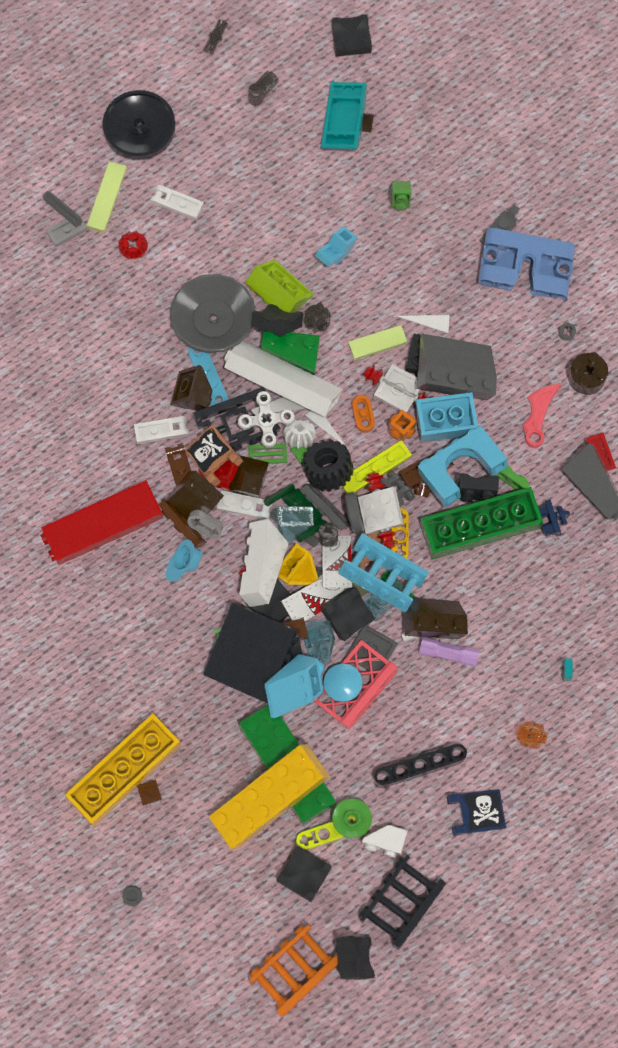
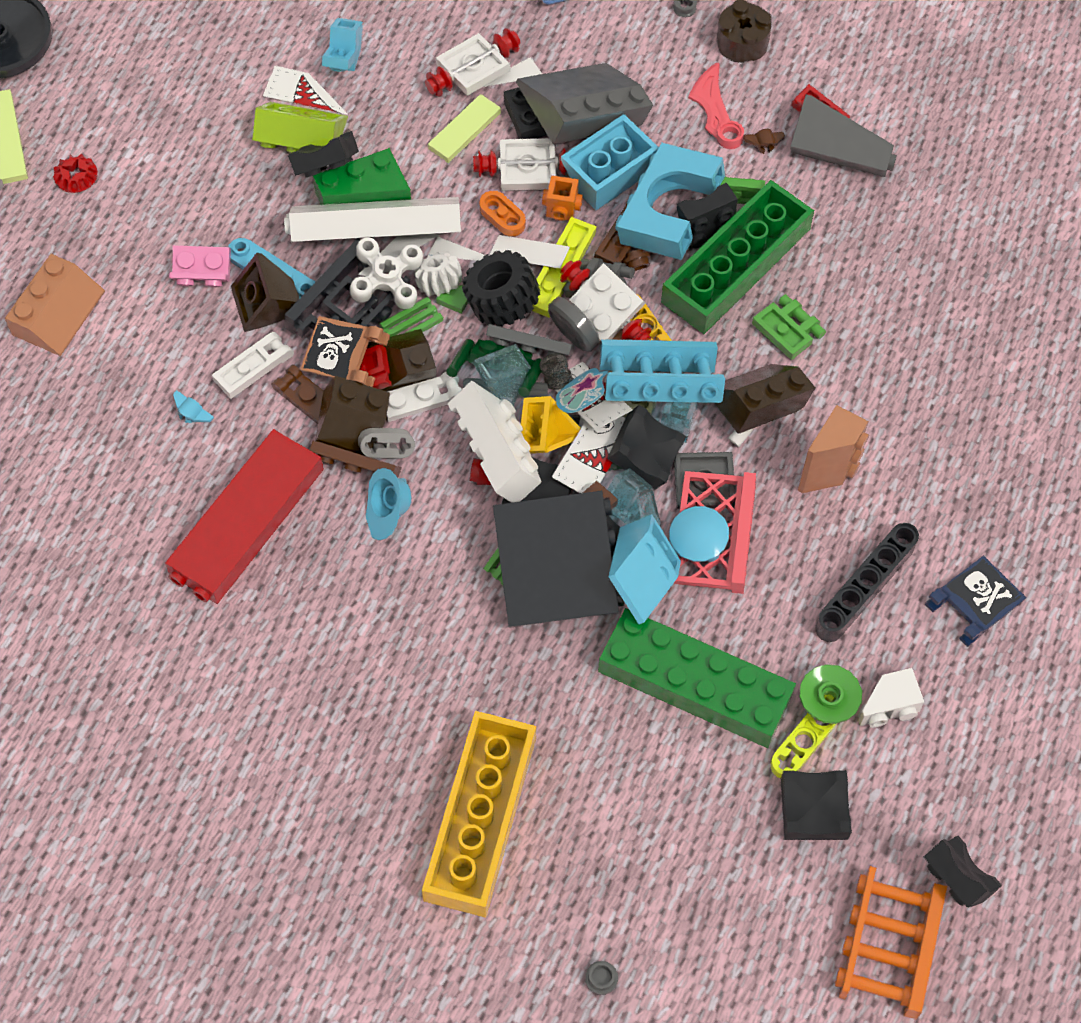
camera: 30 degrees left, 10 degrees down
(72, 328) = (54, 305): none -> nougat slope
(110, 439) = (190, 409): none -> medium azure piece
(149, 793) = (534, 825): reddish brown tile -> none
(168, 349) = (201, 264): none -> bright pink bracket
(177, 202) = (102, 97): white plate -> none
(210, 297) = (227, 173): dark grey dish -> none
(269, 796) = (706, 726): yellow brick -> none
(297, 259) = (300, 89): none -> white sticker
(318, 312) = (372, 132): clear smoke brick -> none
(328, 559) = (581, 391): none -> sticker
(363, 448) = (534, 251): none -> white sticker
(409, 302) = (473, 63): none -> white plate
(409, 919) = (995, 752): black fence -> none
(434, 648) = (781, 433): lavender axle -> none
(447, 680) = (834, 451): none -> nougat slope
(478, 585) = (784, 331): none -> bright green plate
(532, 735) = (977, 466): clear orange head -> none
(548, 511) = (824, 207): dark blue hips -> none
(553, 453) = (764, 138): none -> reddish brown piece
(567, 670) = (963, 367): teal tile -> none

